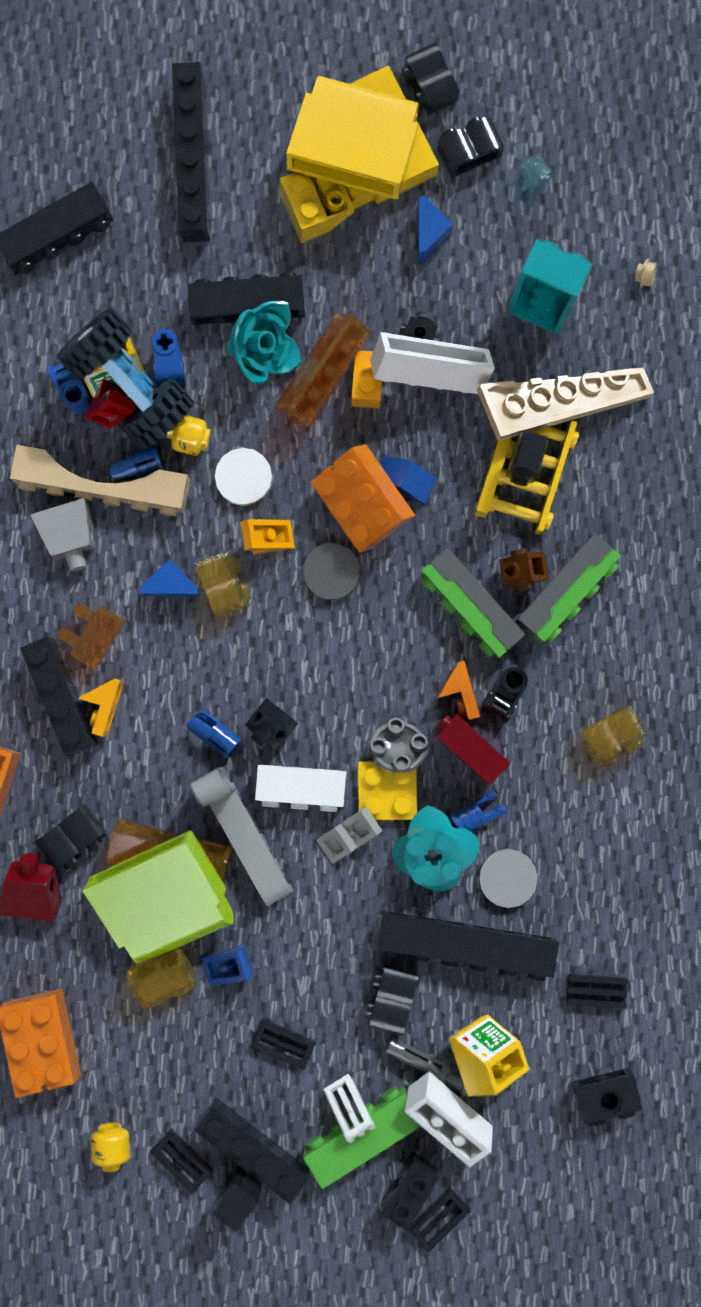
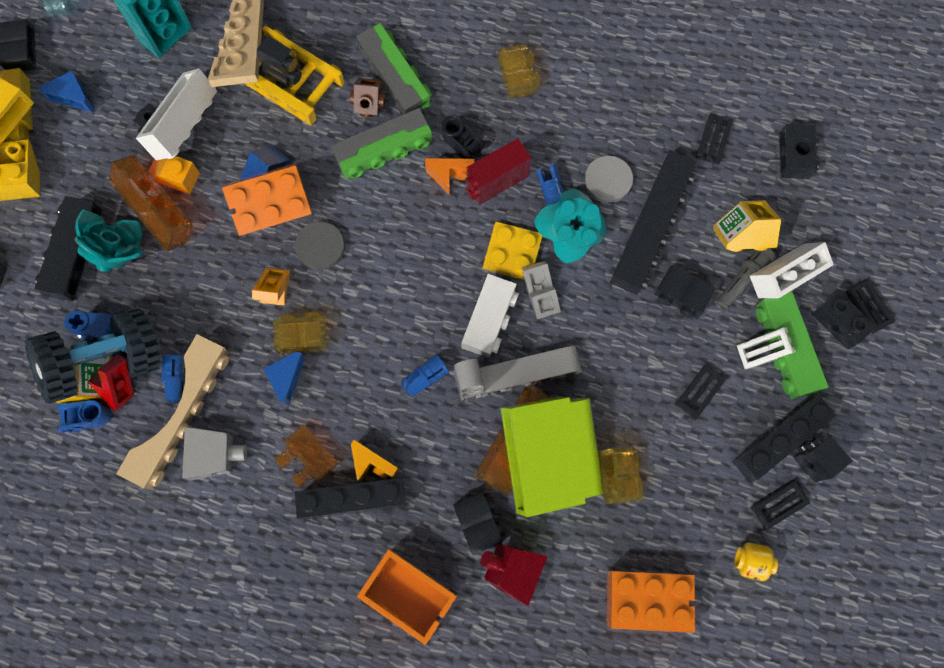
camera: 75 degrees left, 10 degrees down
(190, 436) = (166, 325): yellow head -> none
(228, 966) = (624, 417): blue slope -> none
(243, 476) = (216, 294): white tile -> none
(270, 725) = (431, 325): black brick -> none
(398, 746) = (479, 230): dark grey dish -> none

